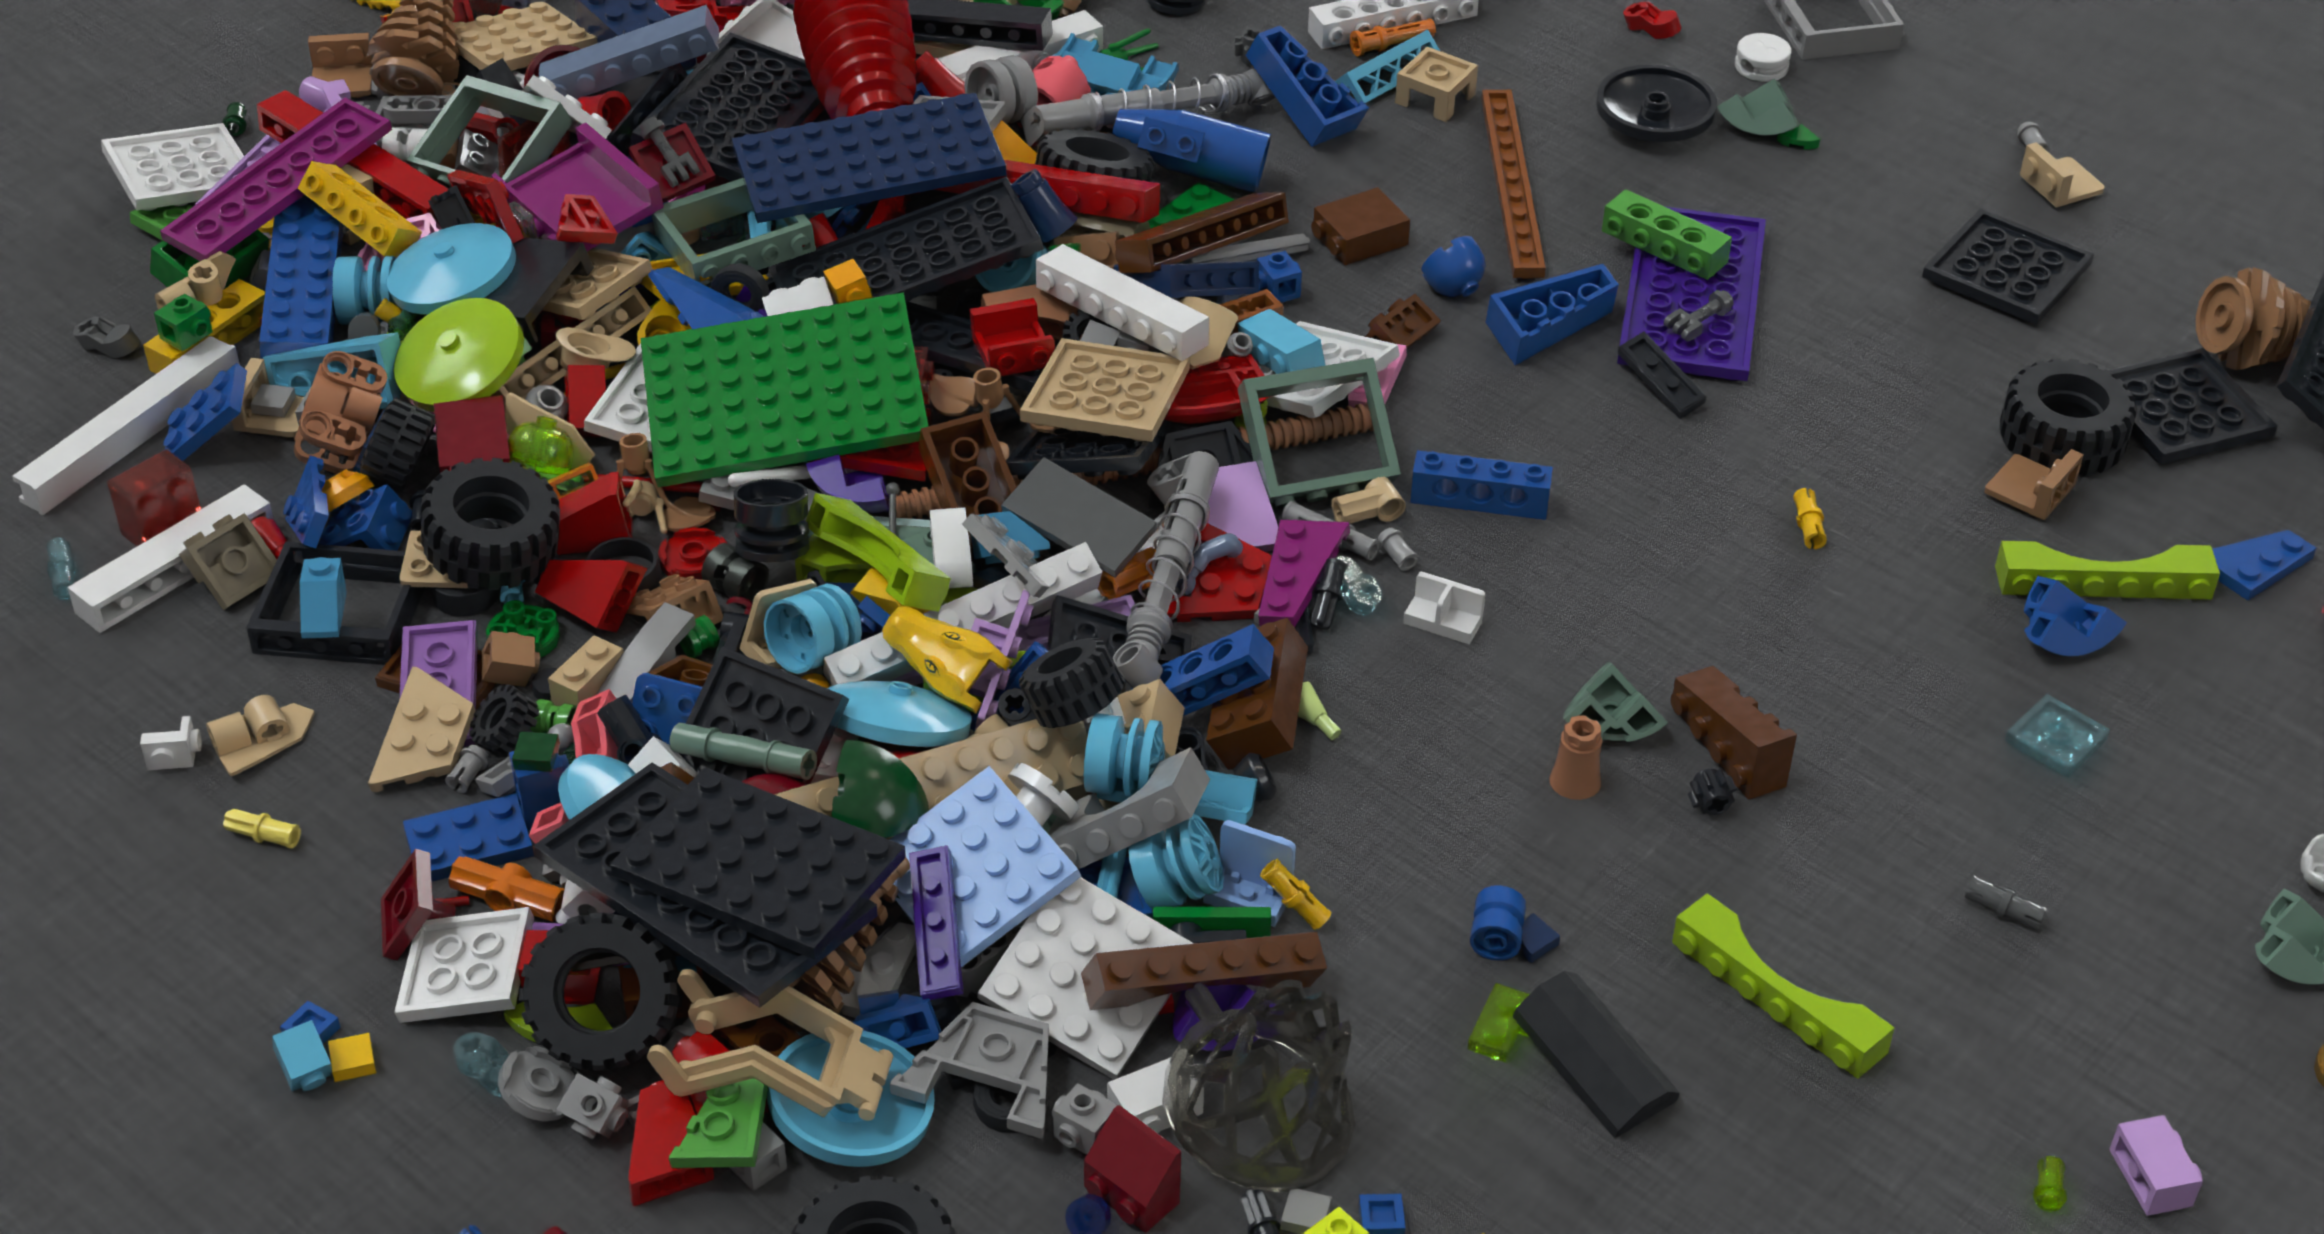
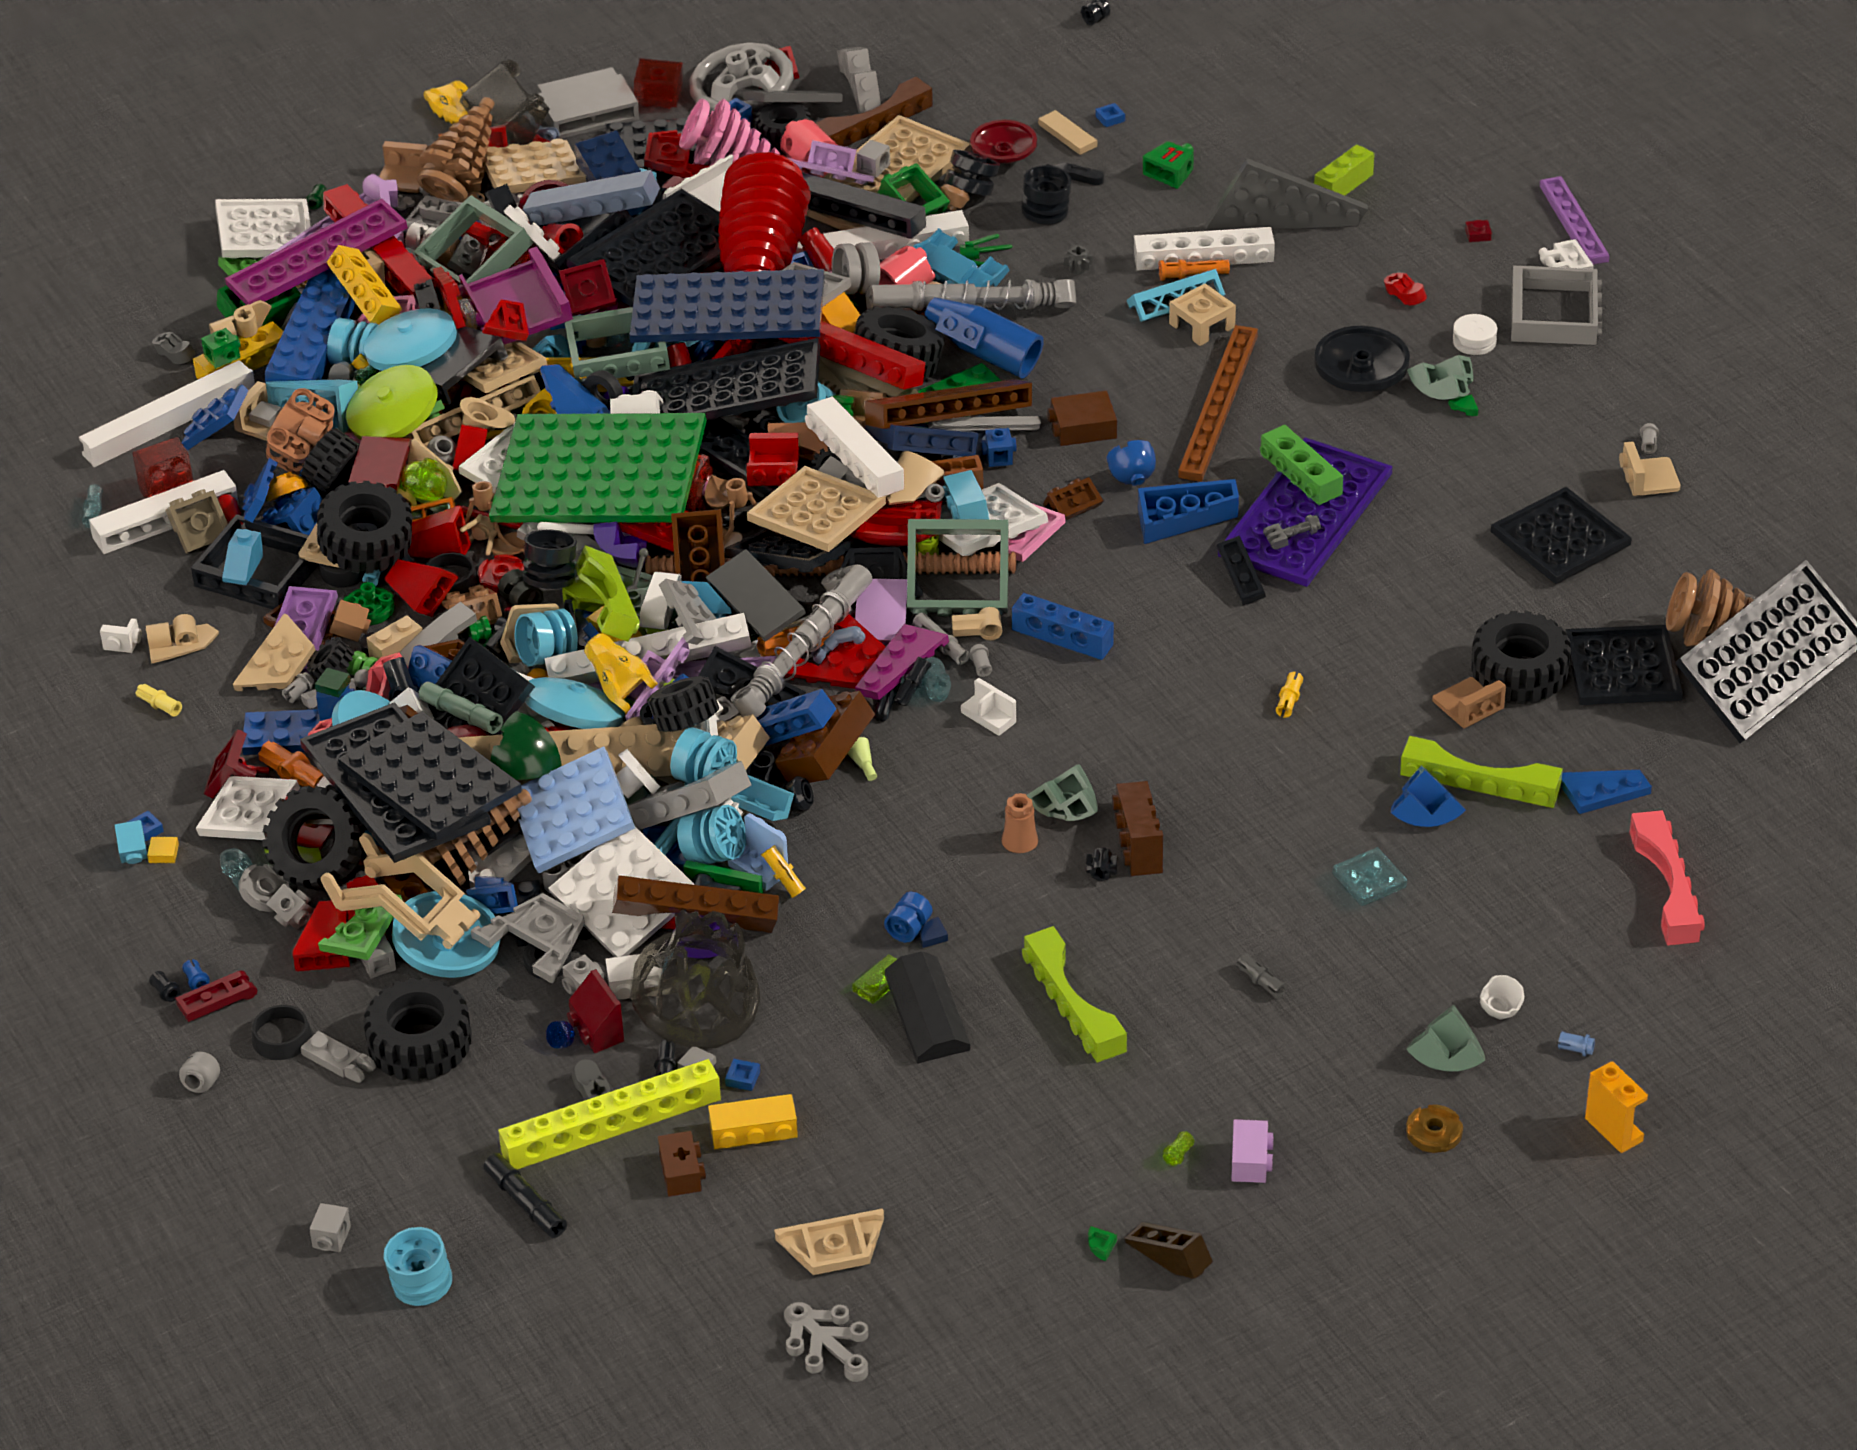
camera: 20 degrees right, 0 degrees up
(653, 129) = (576, 260): dark grey hinge -> none
(847, 282) = (671, 398): light orange brick -> none
(935, 923) = (533, 838): dark purple tile -> none
(1043, 205) = (835, 364): dark blue plant -> none
(1303, 87) = (1090, 302): blue wedge -> none

